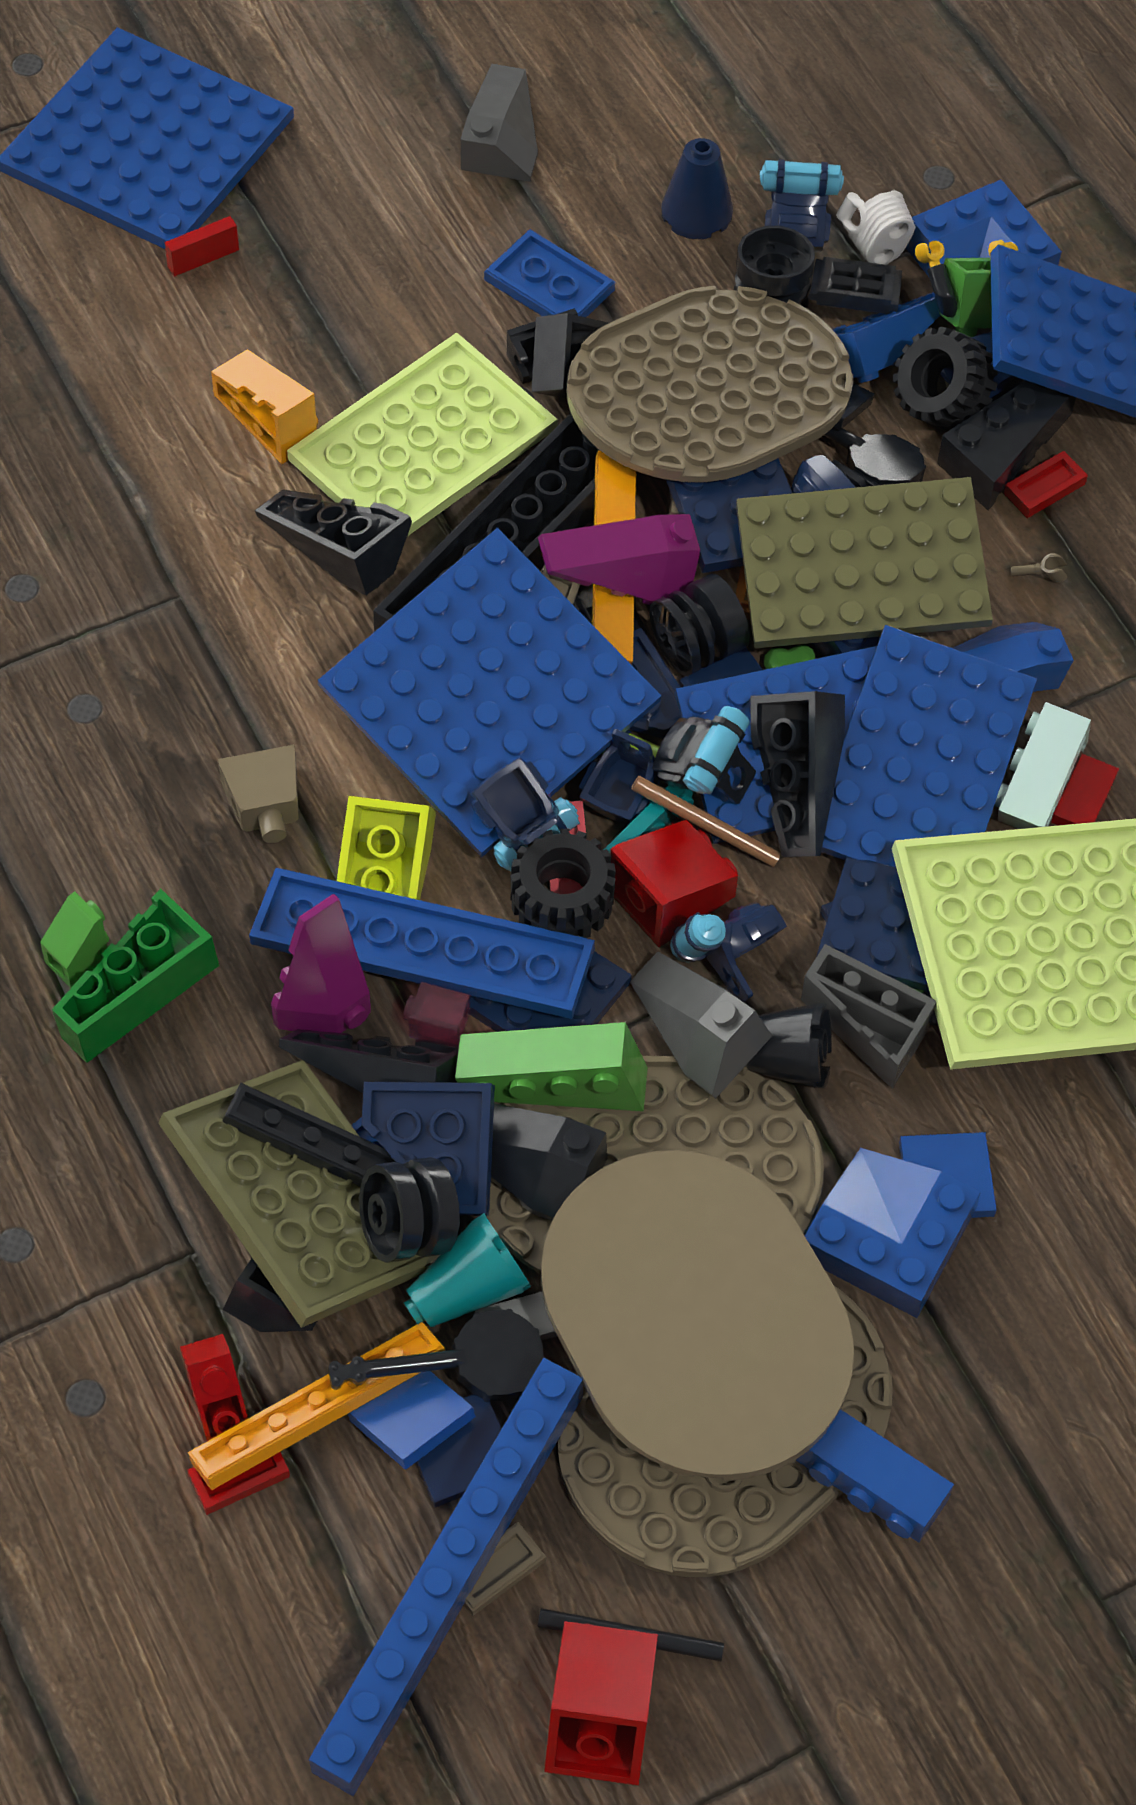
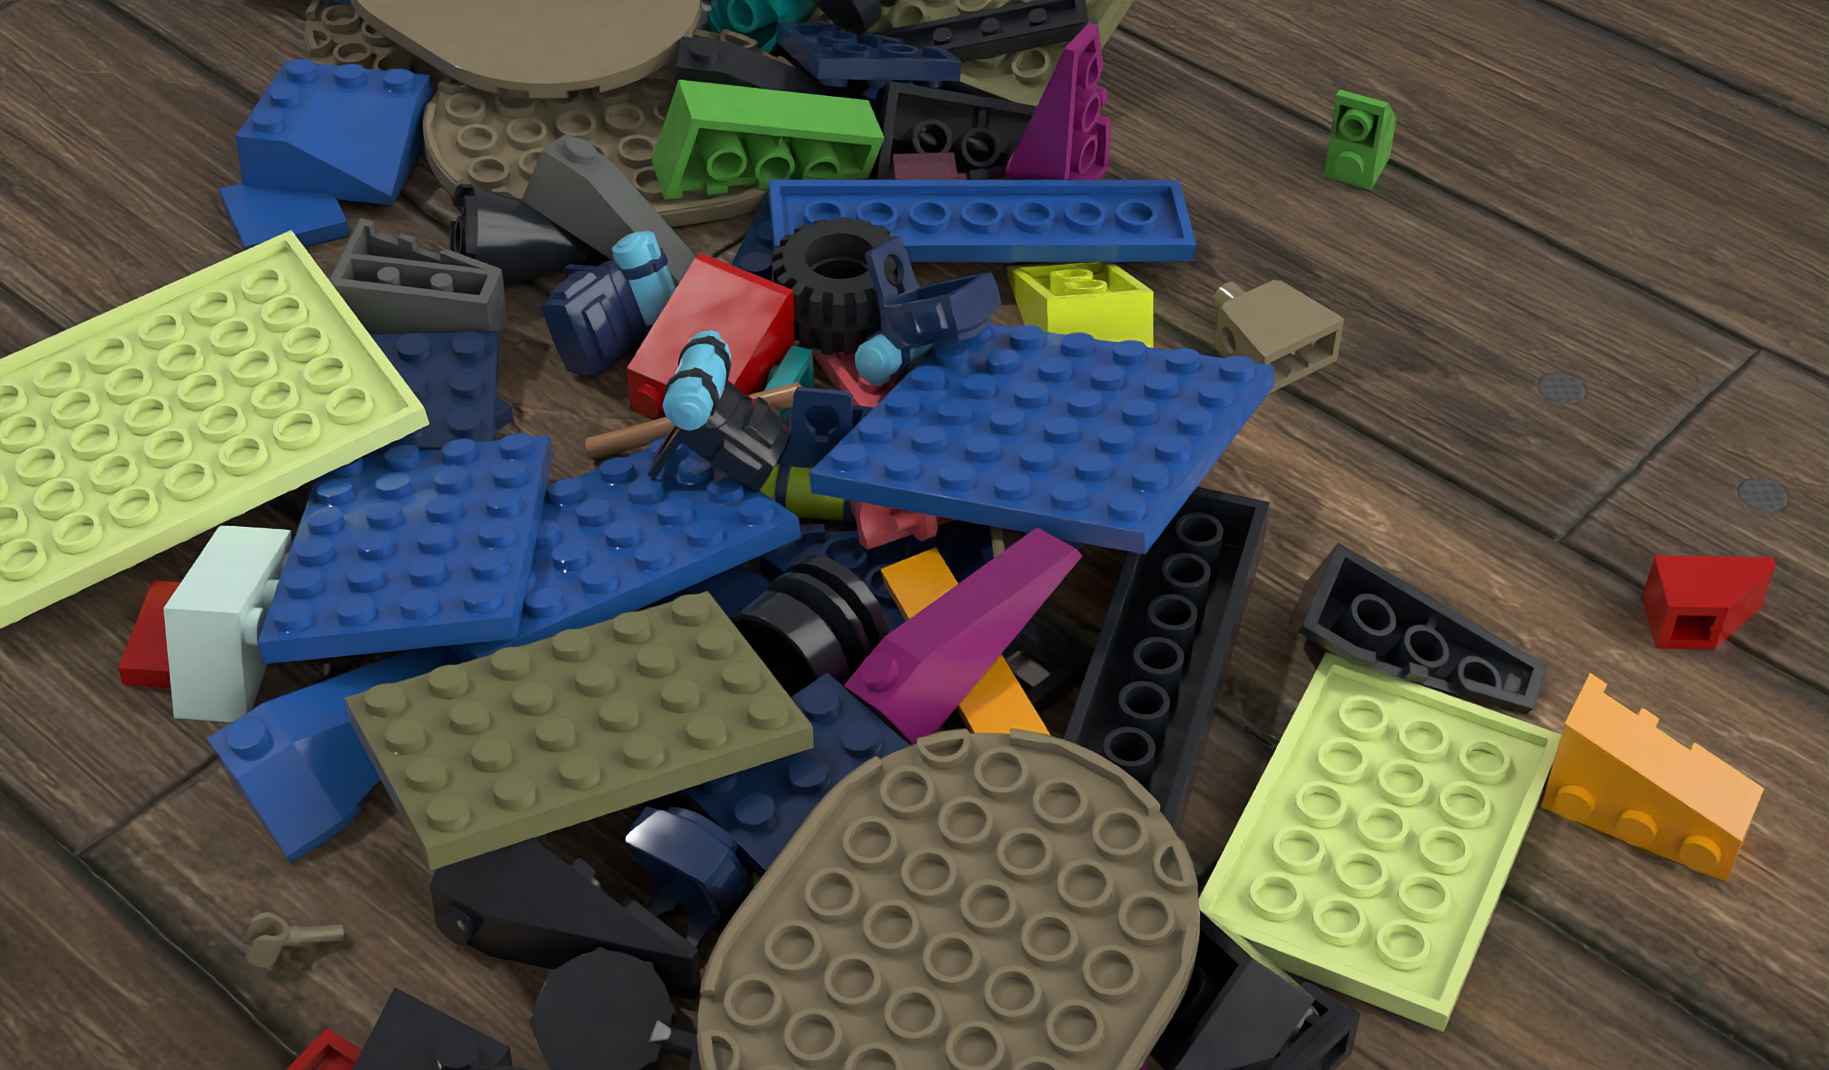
camera: 160 degrees right, 15 degrees down
(133, 507) = (1703, 598): none -> red slope
(136, 977) = (1269, 135): green wedge -> none
(801, 754) = (585, 486): black wedge -> none

